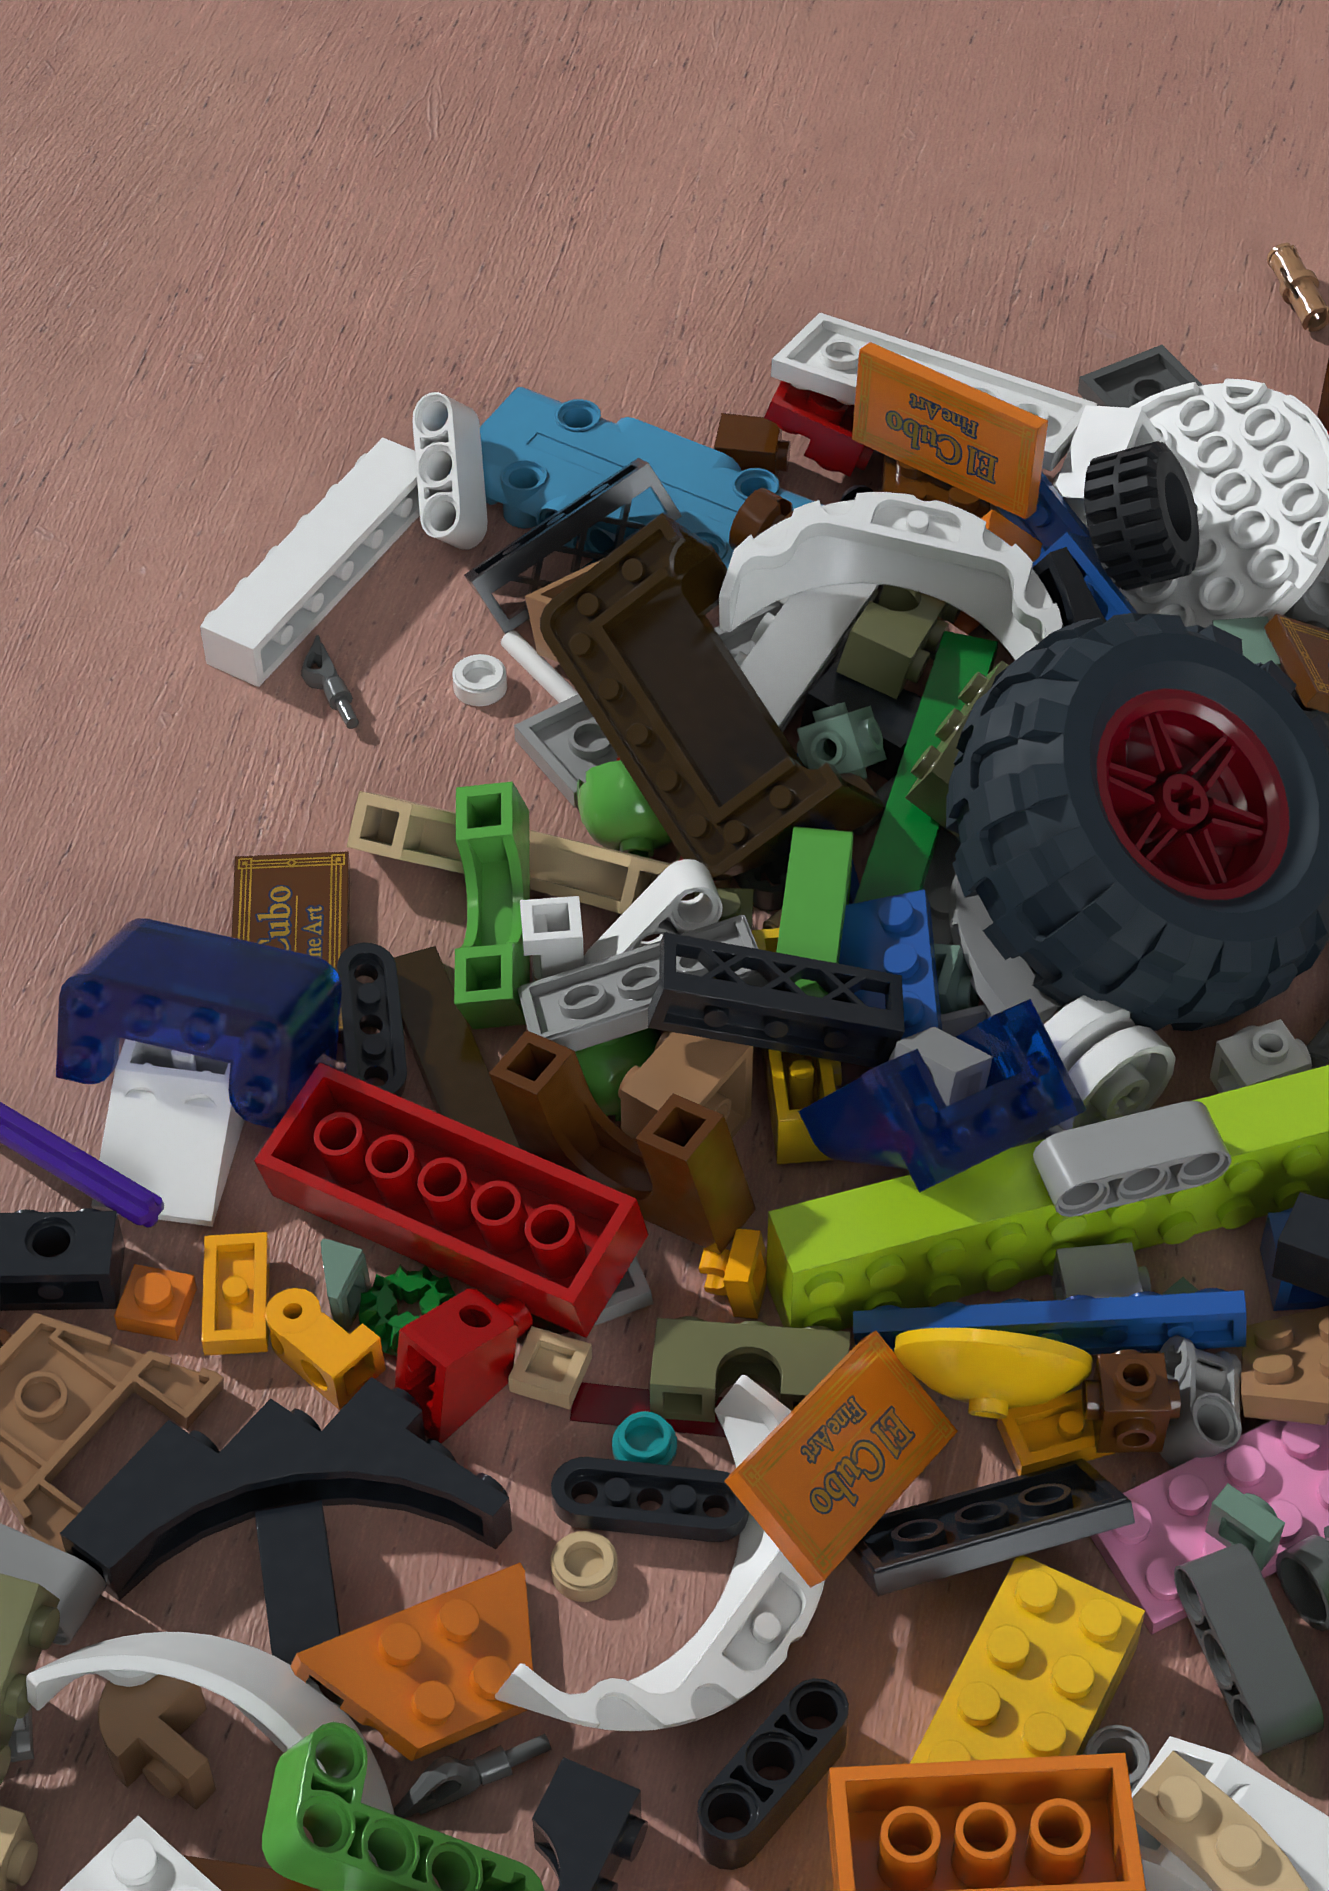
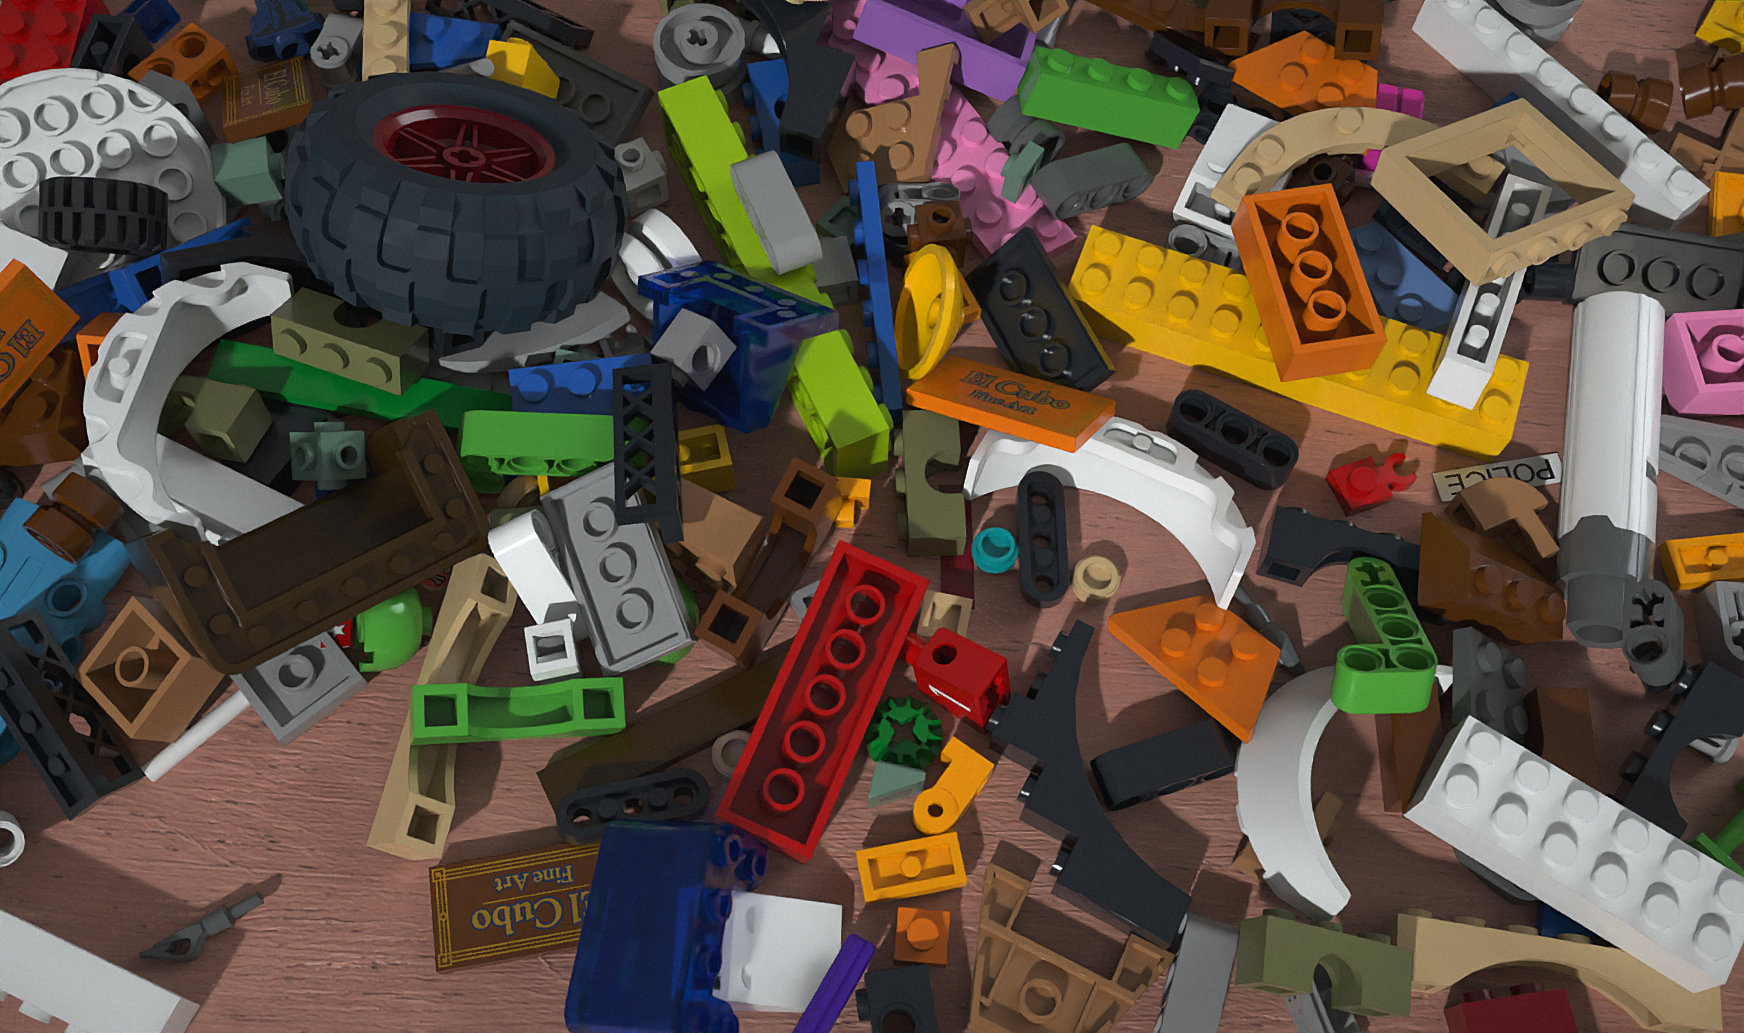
camera: 100 degrees left, 15 degrees up
(479, 680) = (205, 790): white tile -> none

